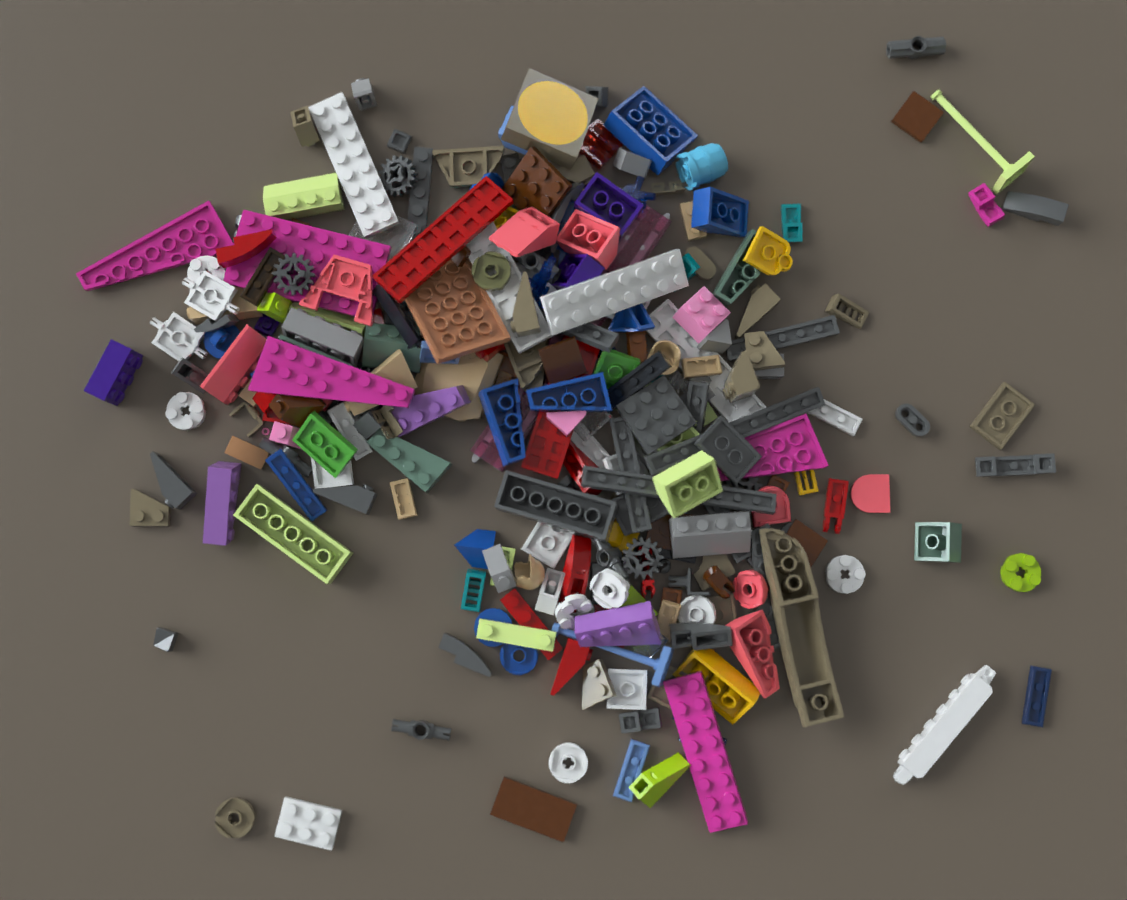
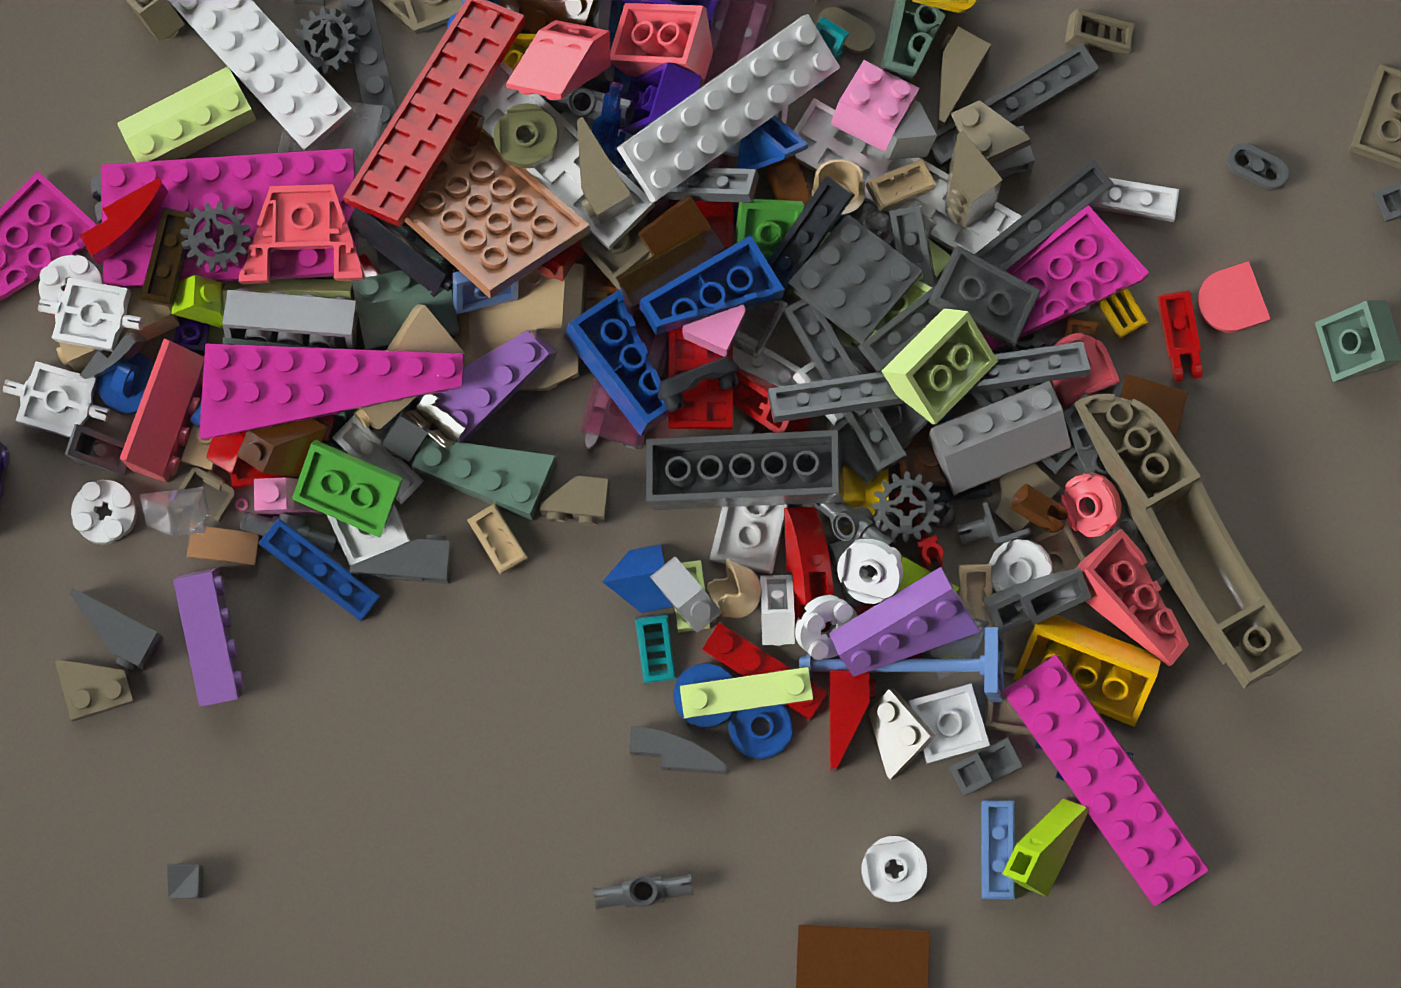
camera: 15 degrees left, 5 degrees down
(226, 425) = (176, 511): none -> clear slope
(293, 534) = (340, 647): yellowish green brick -> none
(457, 490) = (578, 499): none -> dark tan slope
(529, 447) = (722, 368): none -> black piece
(547, 374) = (663, 268): none -> dark brown tile
(671, 595) = (970, 555): dark orange tile -> none
(845, 585) = (1248, 429): white plate -> none

